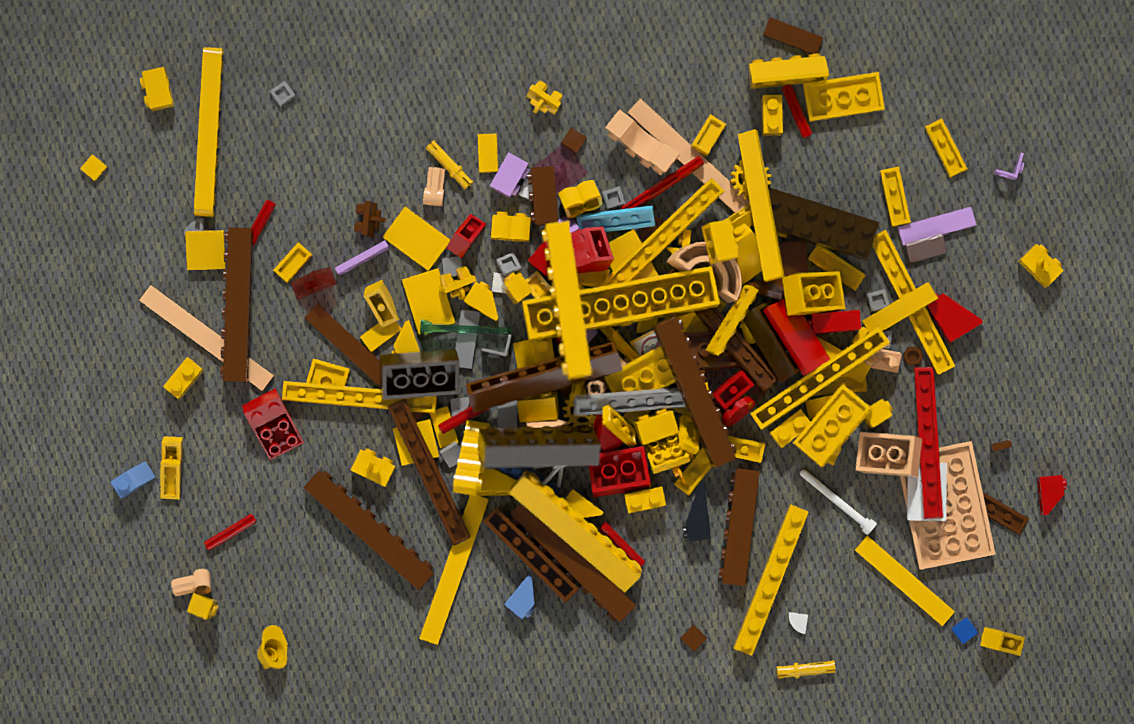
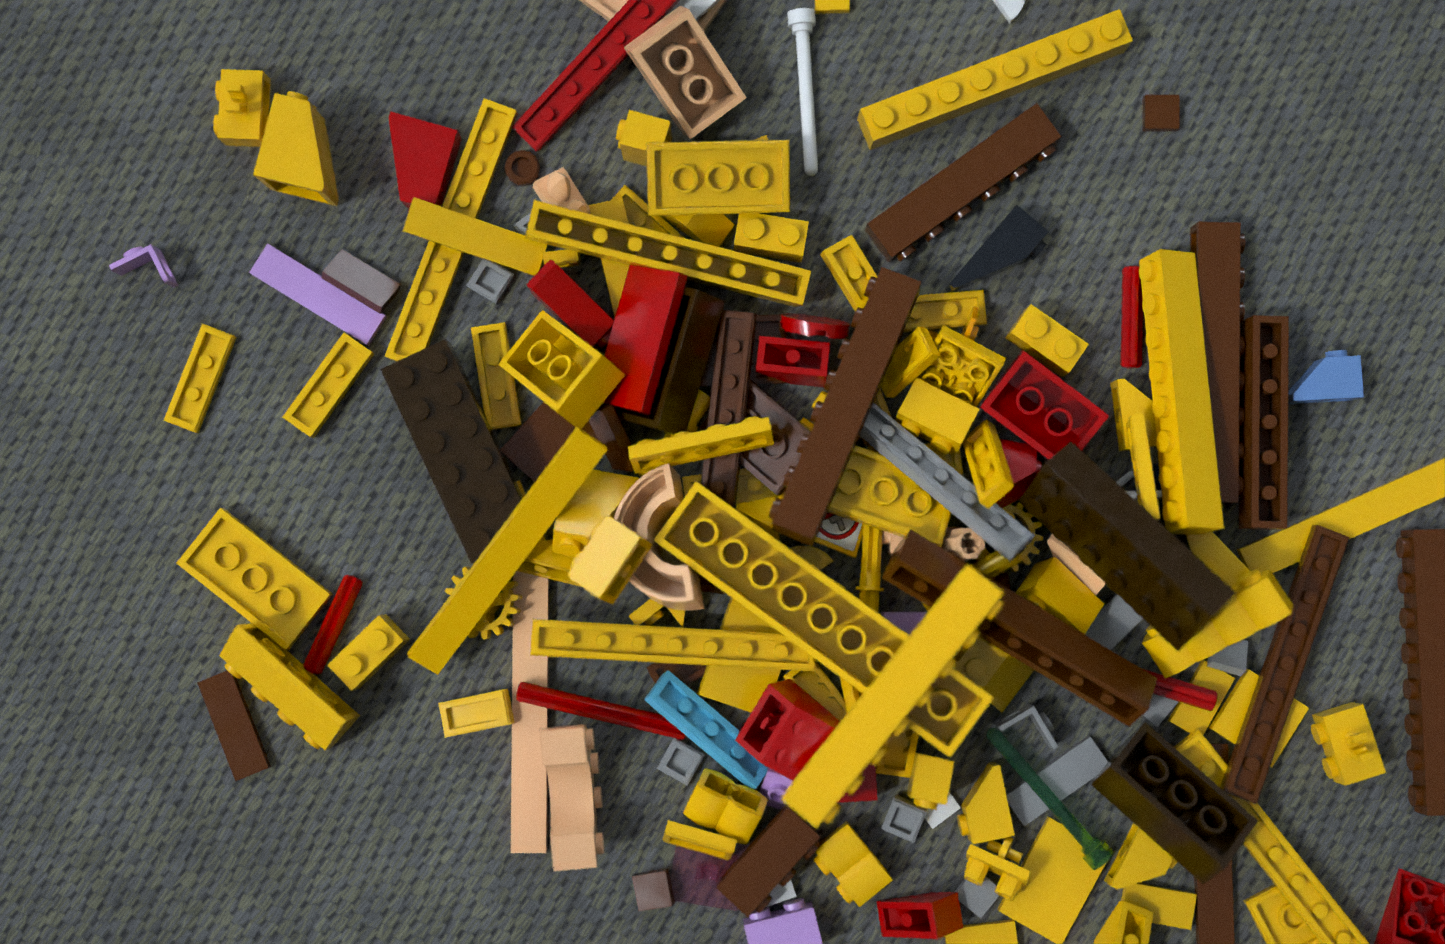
camera: 130 degrees left, 0 degrees up
(560, 484) = (1142, 464): none -> yellow tile
(576, 176) = (699, 840): none -> yellow tile
(1000, 270) = (296, 151): none -> yellow slope

